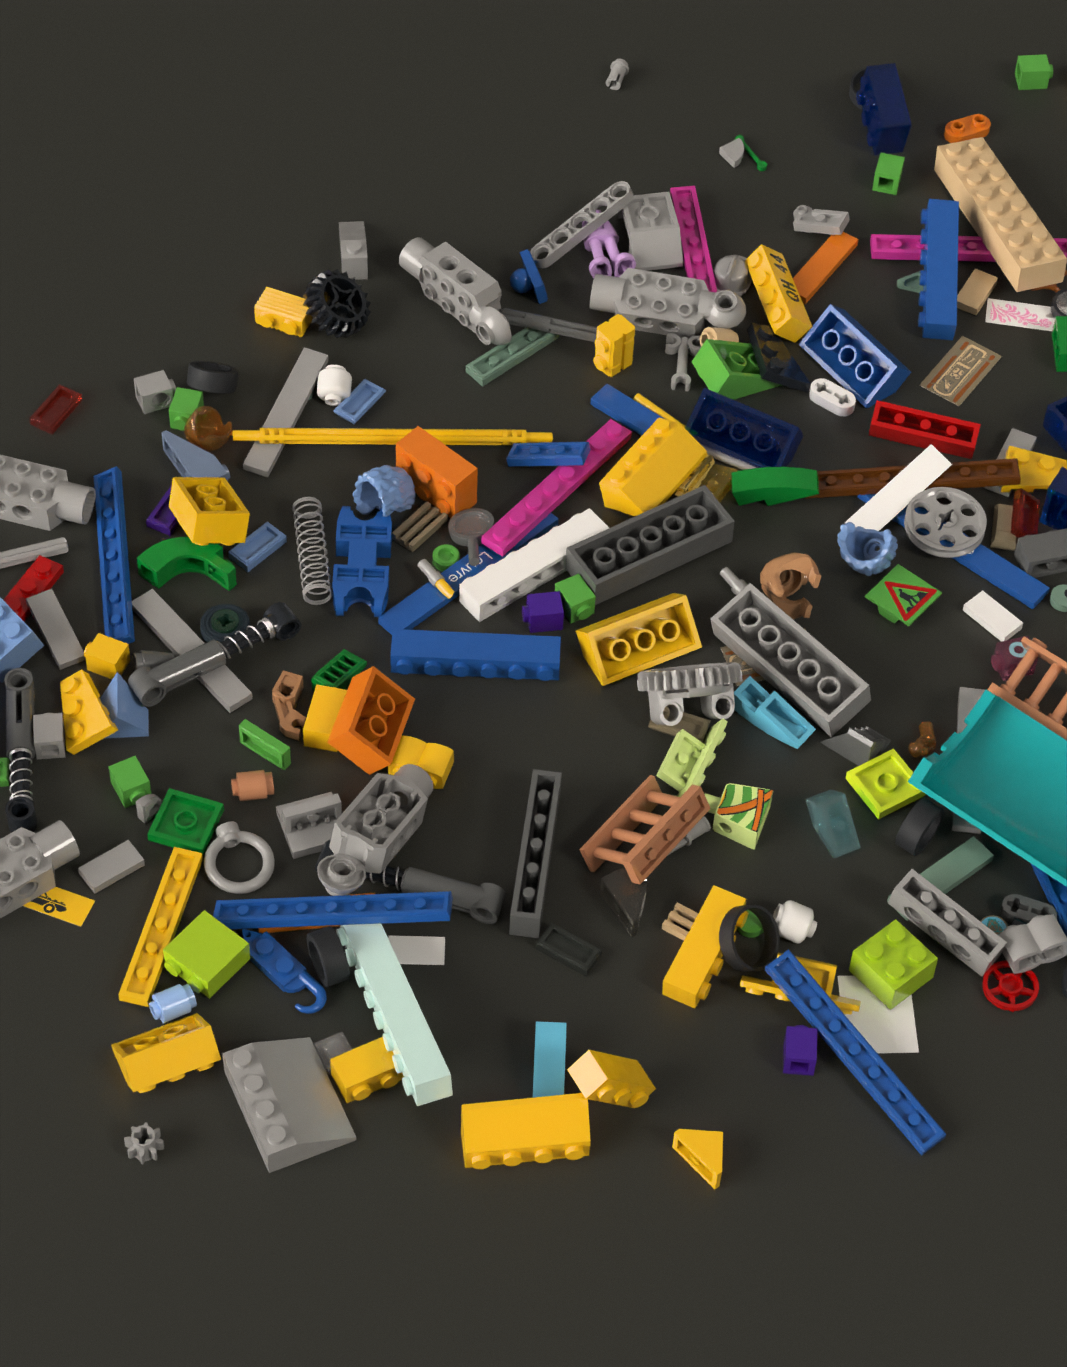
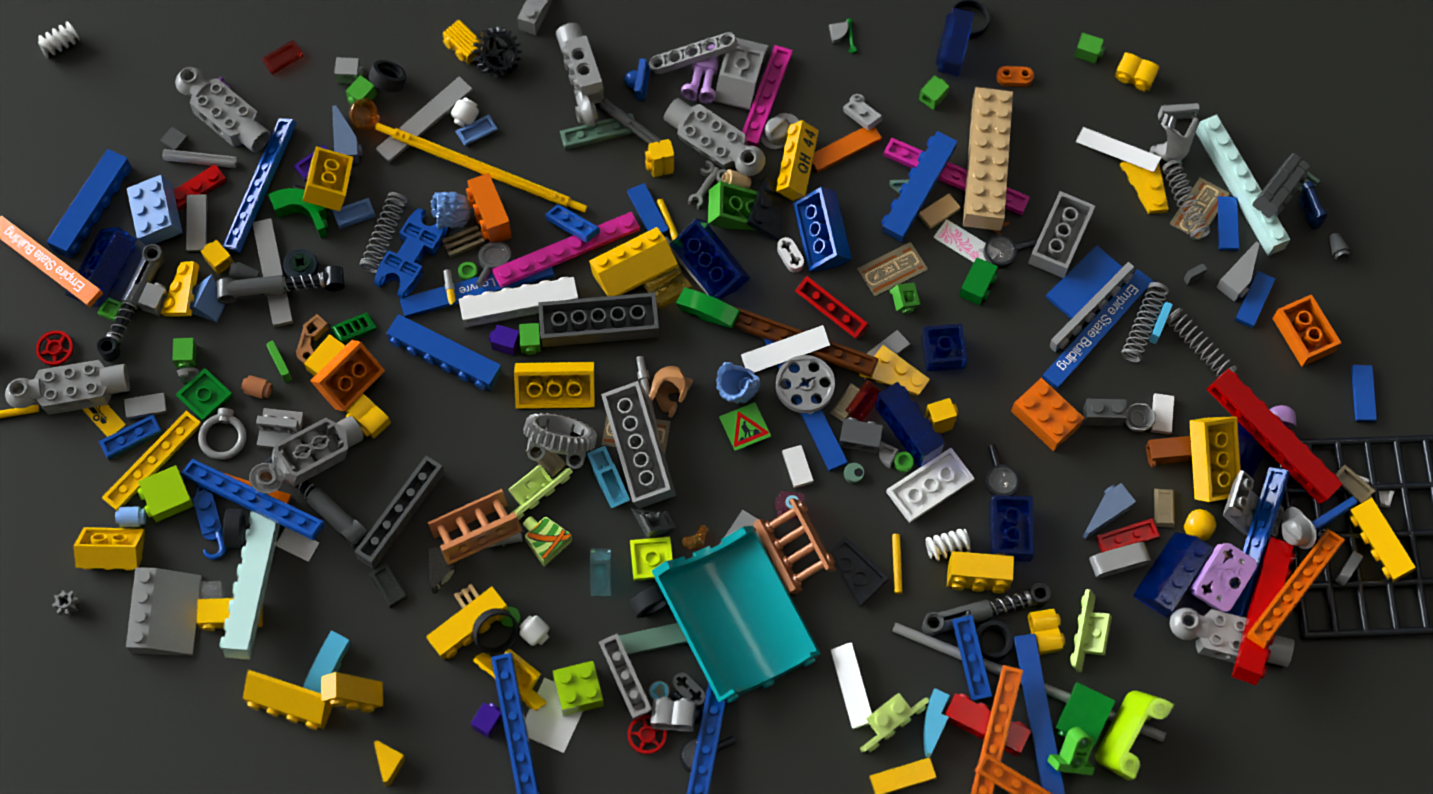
camera: 25 degrees right, 15 degrees up
(112, 911) = (130, 437): none -> blue tile
(1000, 389) = (905, 297): none -> bright green brick

